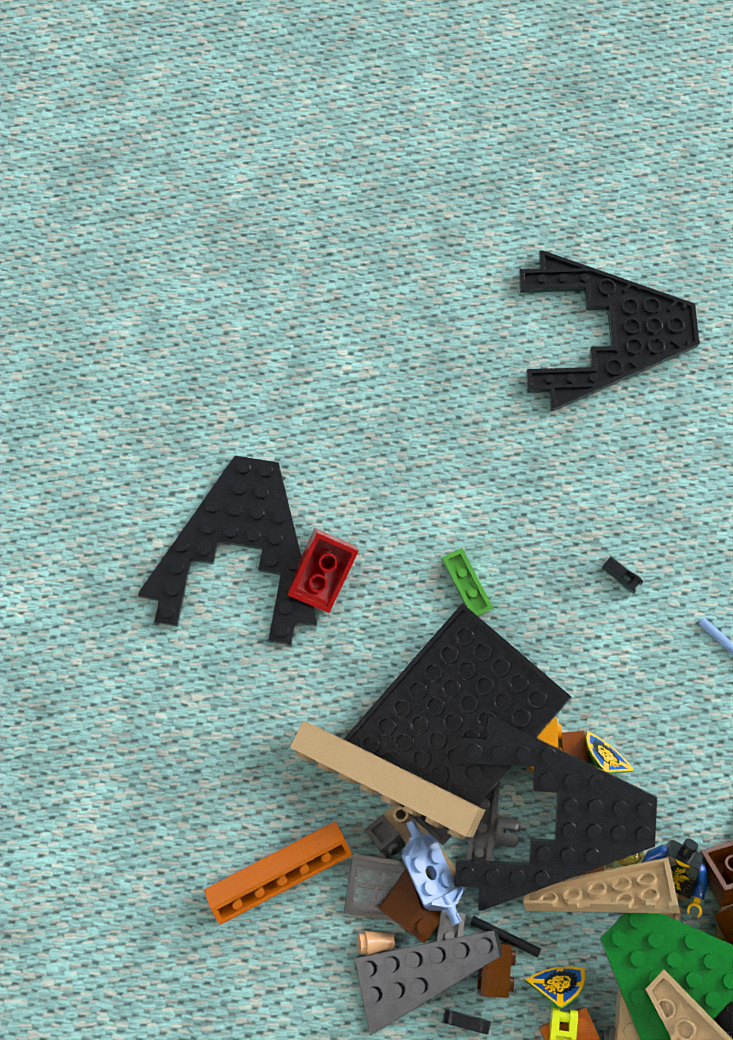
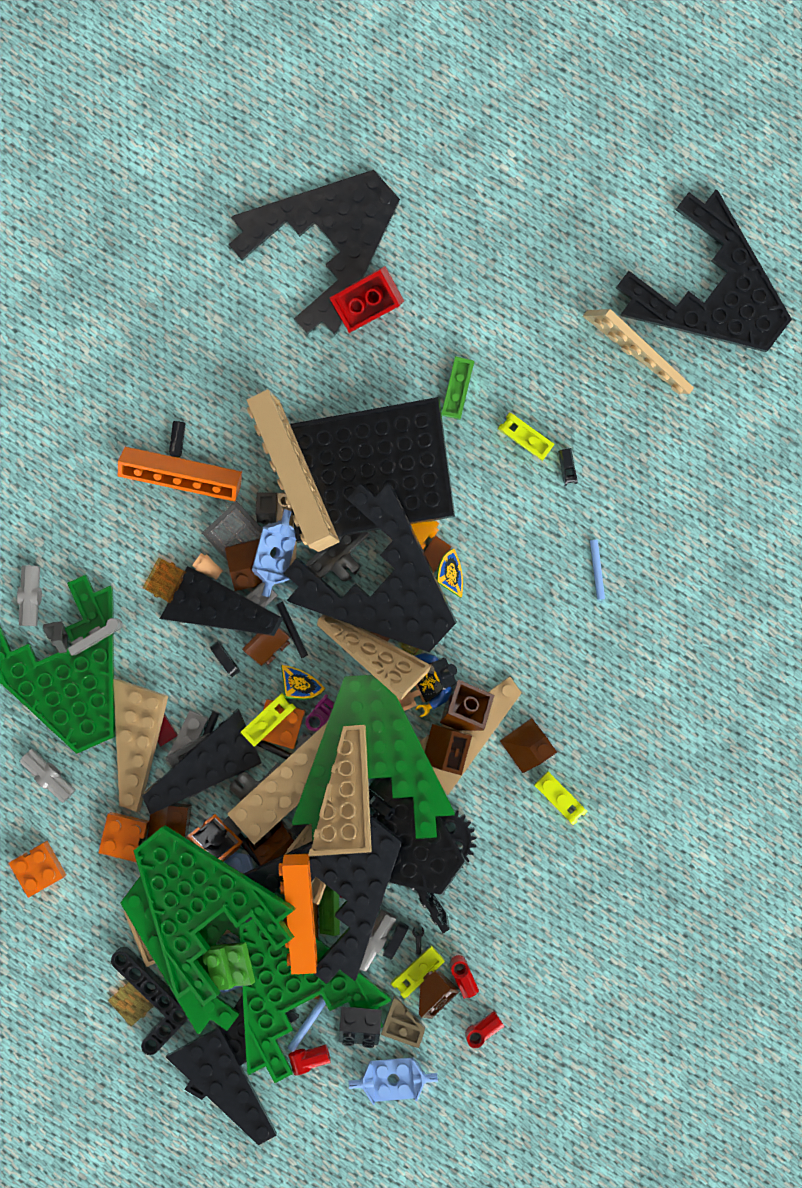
camera: 45 degrees right, 15 degrees up
(247, 841) = (177, 438): none -> black bar
(344, 991) = (164, 579): none -> clear orange piece
(564, 577) = (526, 436): none -> neon yellow plate
(585, 424) = (634, 345): none -> tan wing
(603, 994) = (321, 712): none -> magenta piece

